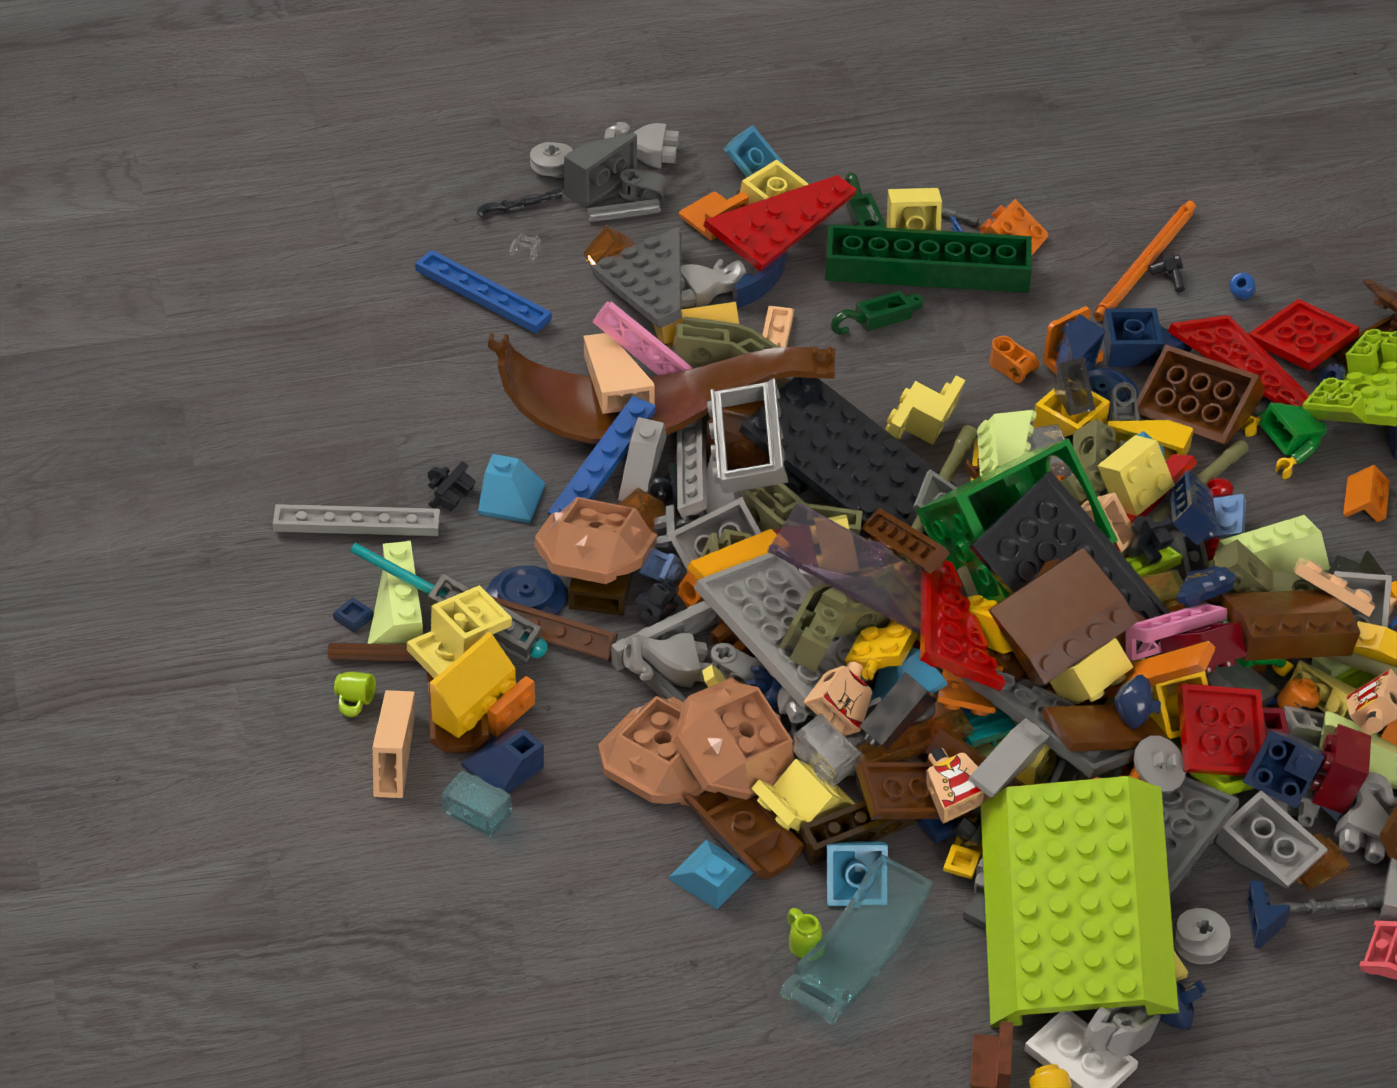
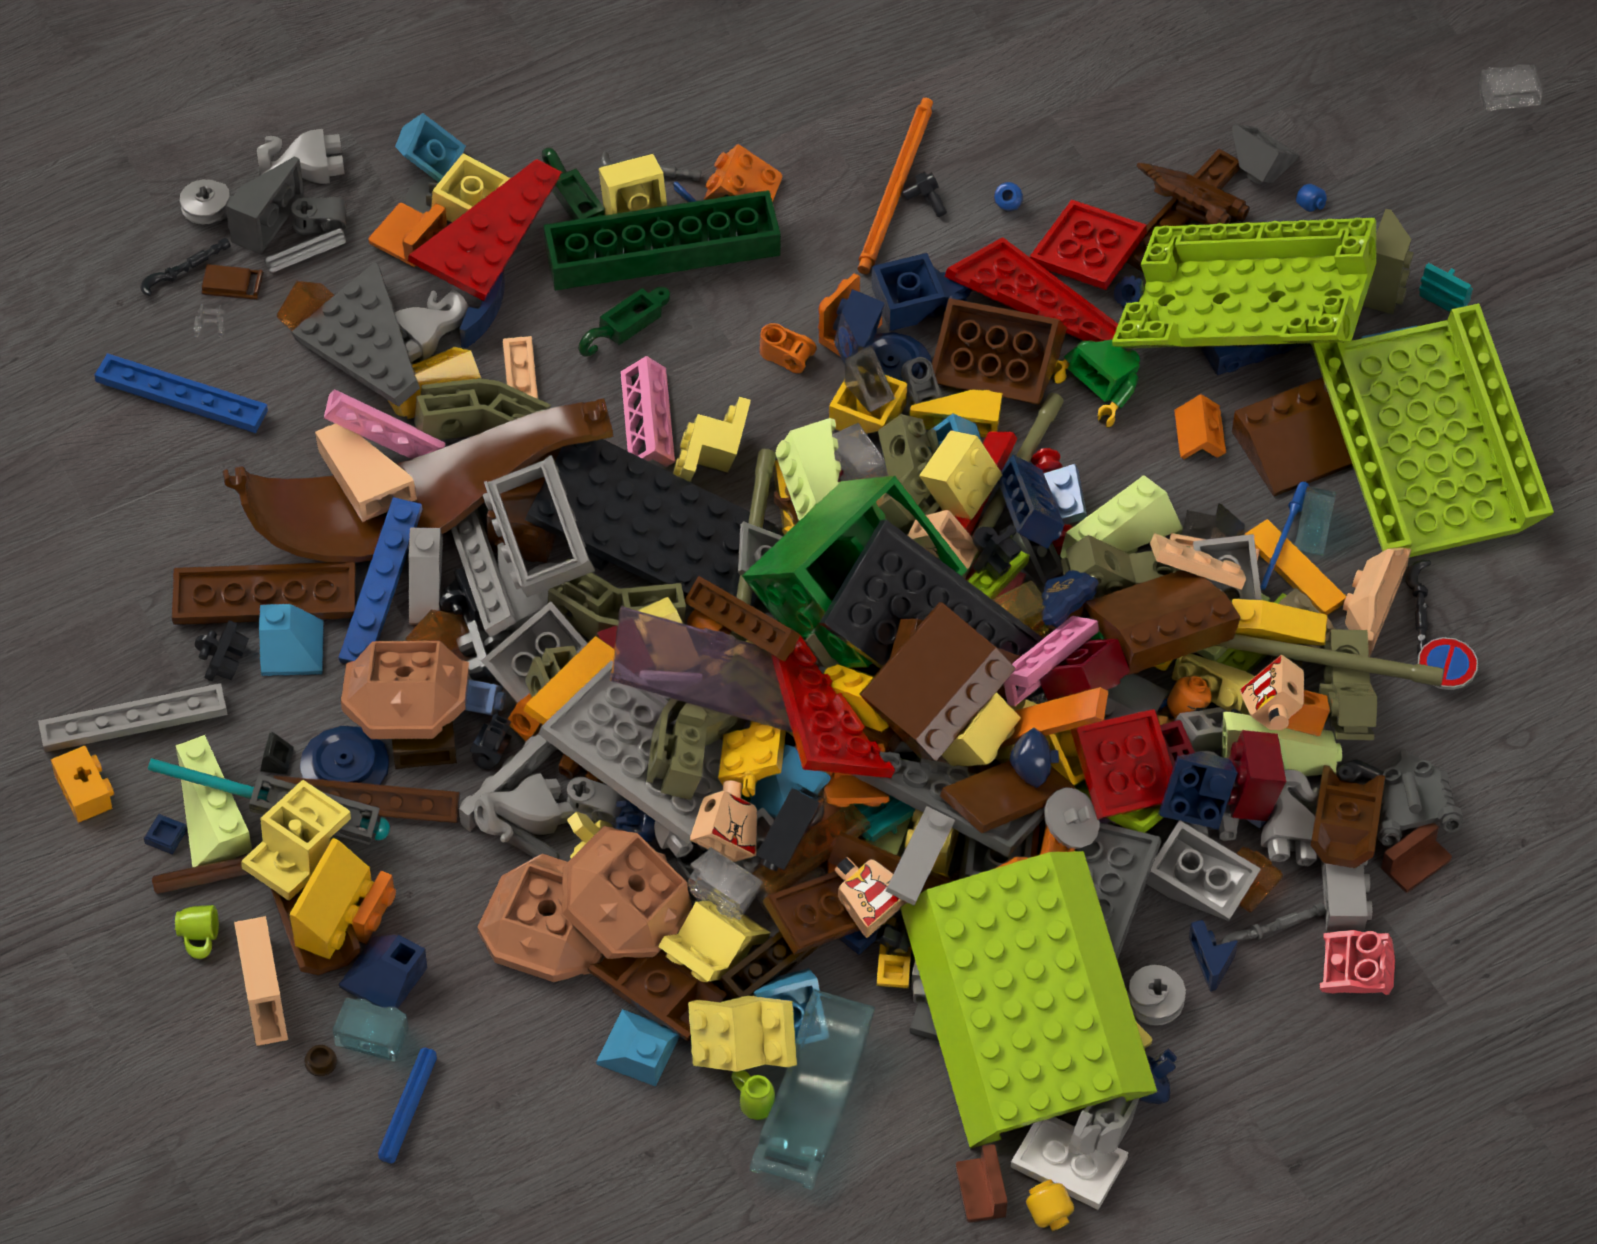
camera: 15 degrees left, 10 degrees up
(295, 559) = (82, 783): none -> light orange brick
(424, 819) = (320, 1060): none -> dark brown plate
(456, 441) = (237, 592): none -> reddish brown plate
(469, 572) = (276, 755): none -> pearl dark grey slope
(488, 872) = (407, 1105): none -> blue axle
(553, 221) = (230, 281): none -> reddish brown piece
(806, 876) = (742, 1033): none -> light yellow bracket
(881, 382) = (653, 409): none -> bright pink fence

